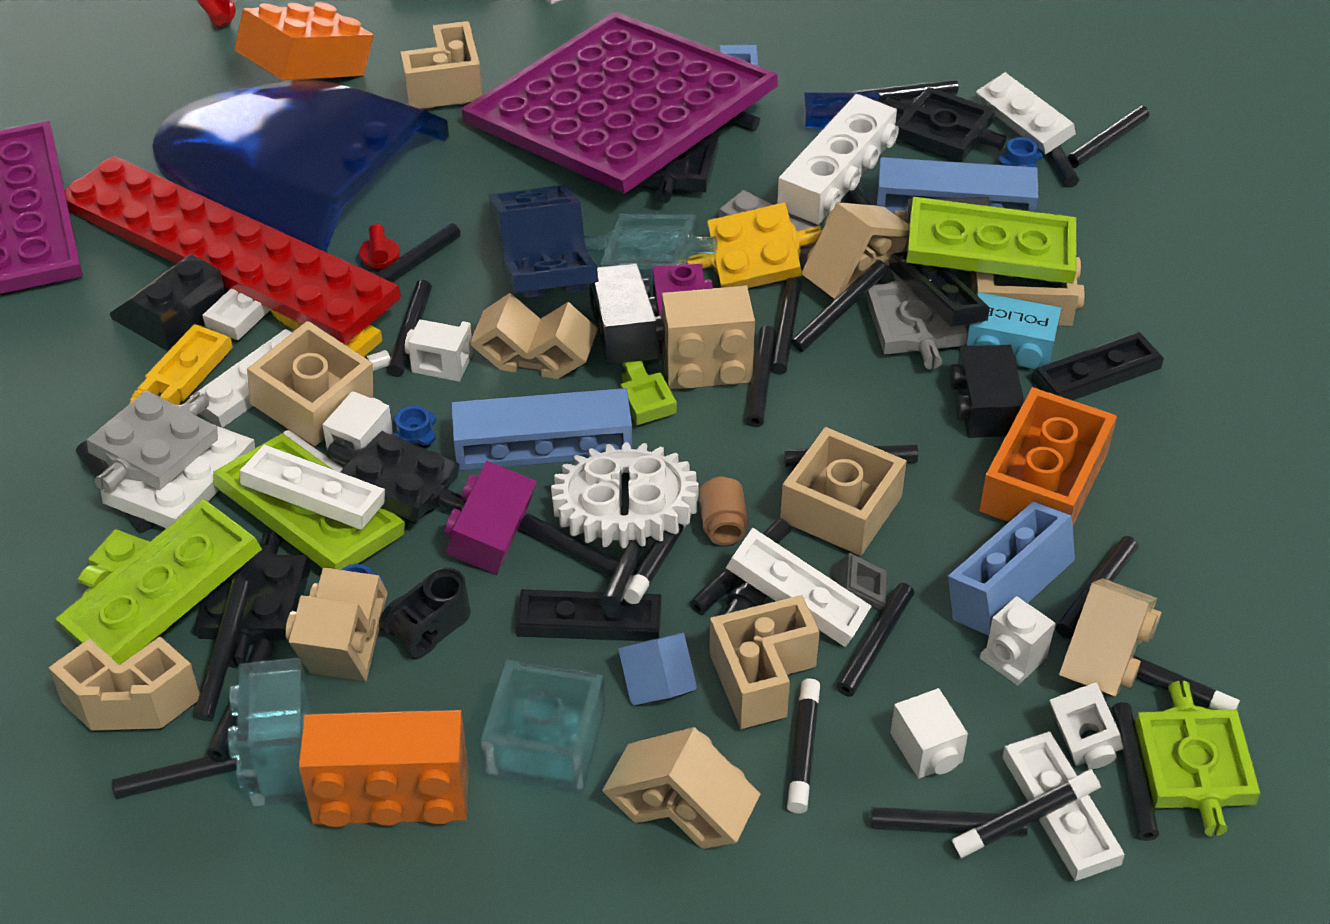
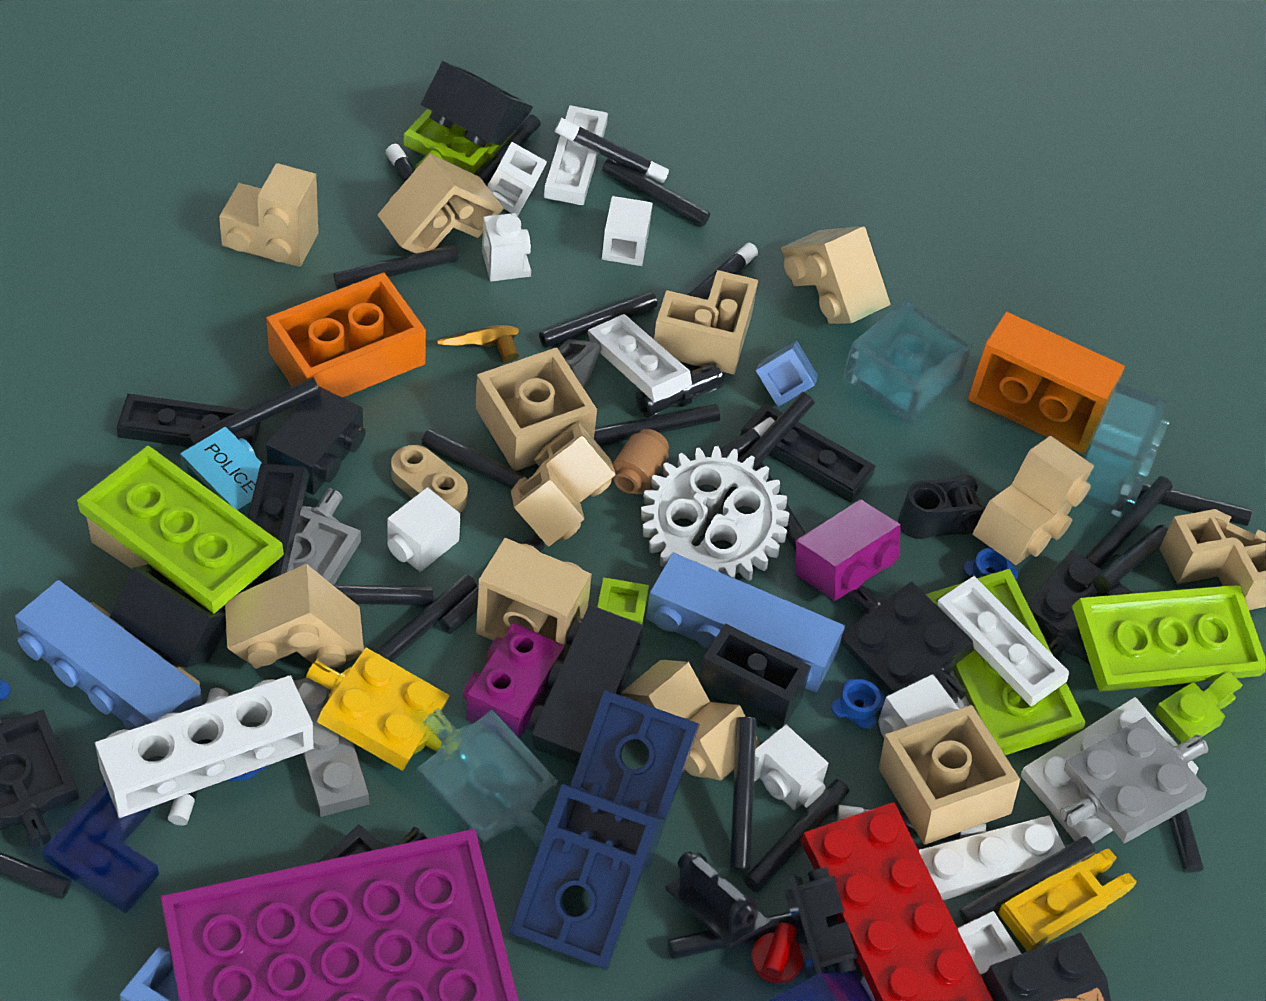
camera: 155 degrees left, 5 degrees up
(216, 366) = (1048, 867): none -> black bar
(361, 252) = (812, 904): none -> black hinge
(437, 251) = (715, 901): none -> black hinge
(462, 307) = (743, 793): none -> black bar
(503, 372) = (753, 676): none -> black brick
(767, 431) = (567, 474): none -> tan brick
(842, 370) = (423, 530): none -> white brick
(879, 421) = (429, 473): none -> tan plate
(946, 563) = (488, 336): none -> pearl gold bar
(1012, 564) = (465, 282): medium blue brick -> none
(1045, 367) = (262, 410): none -> black bar
(1197, 756) = (473, 104): none -> black slope
(1231, 537) = (273, 220): none -> tan brick

